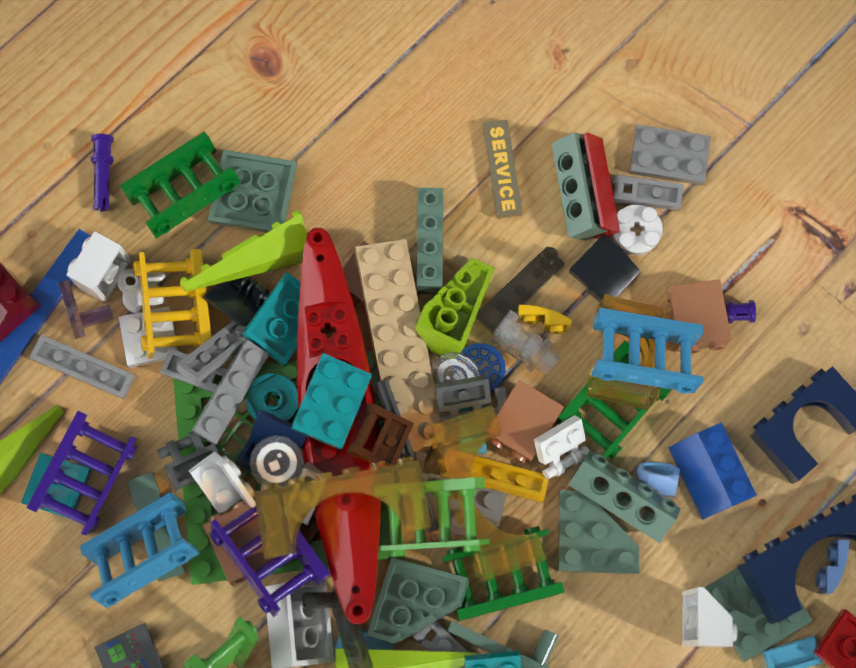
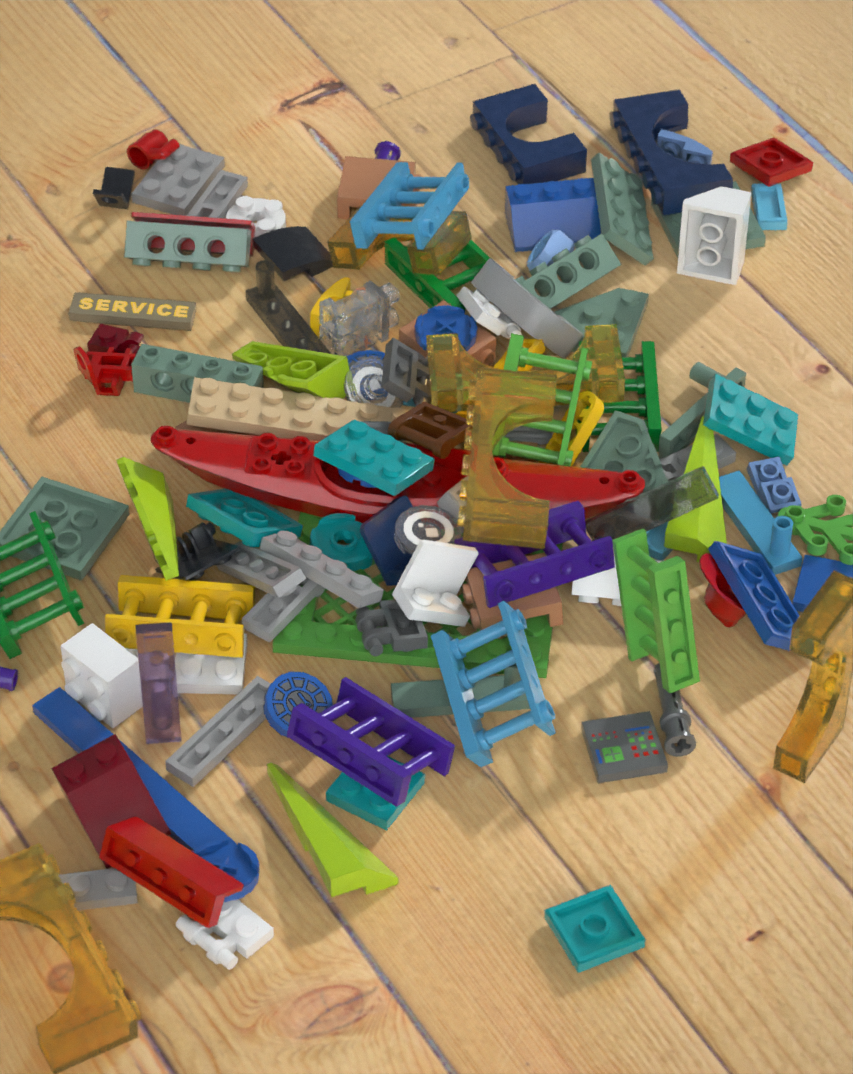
camera: 75 degrees left, 30 degrees down
(111, 410) = (289, 691): none -> tile
(422, 176) = (102, 369): none -> red piece
(441, 555) = (584, 429): none -> yellow beam
(463, 165) = (111, 336): none -> dark red plate
(523, 417) = (446, 321): none -> blue tile
(568, 472) = (526, 309): none -> light grey slope
(635, 111) = (115, 188): none -> black bracket
(692, 122) = (151, 147): none -> red piece
(732, 527) = (622, 208): none -> sand green plate

